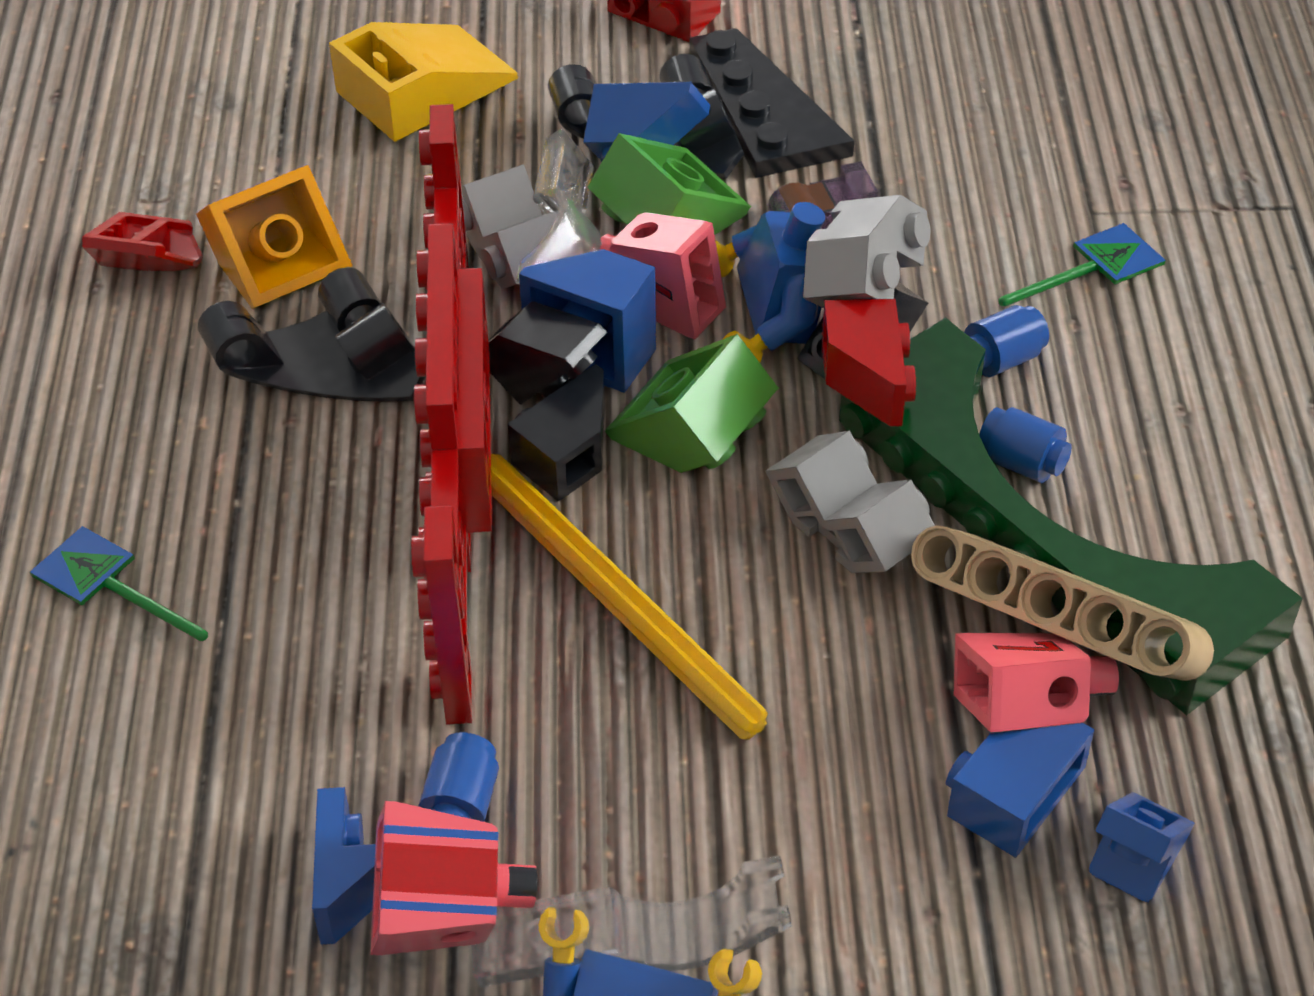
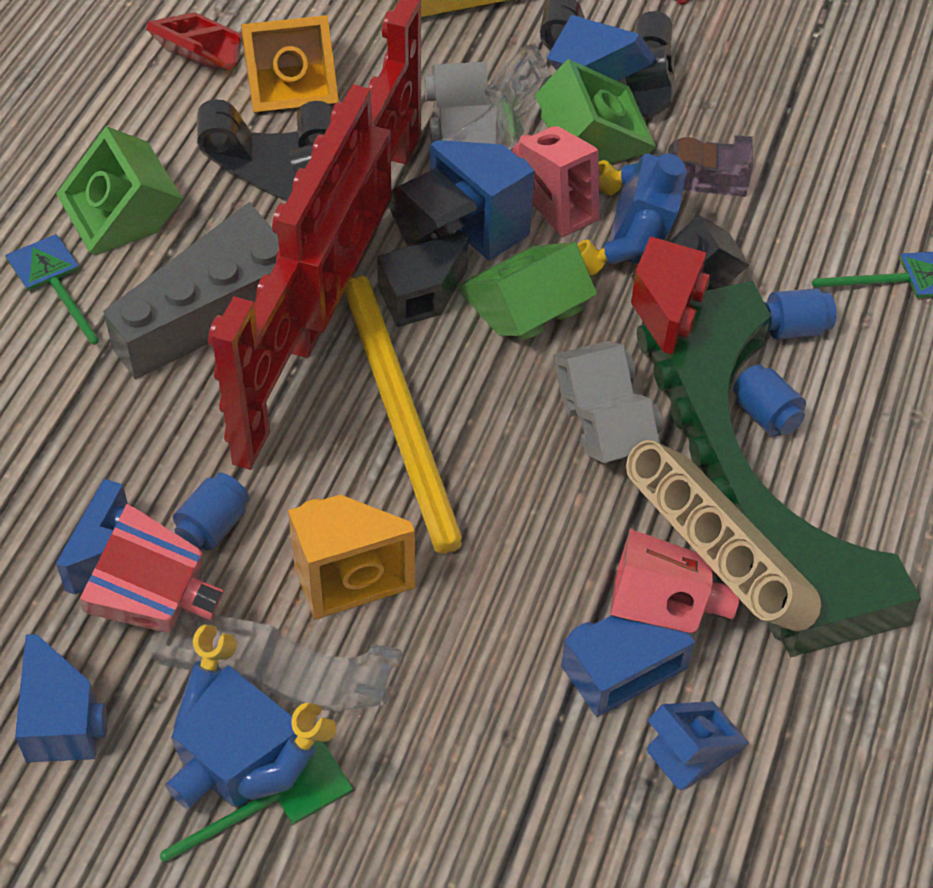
camera: 20 degrees right, 5 degrees up
(141, 452) = (118, 192): none -> bright green slope
(316, 535) = (177, 303): none -> dark grey wedge
(658, 771) = (350, 553): none -> light orange slope
(768, 111) = (709, 73): black wing -> none
(865, 249) = (702, 203): light grey brick -> none

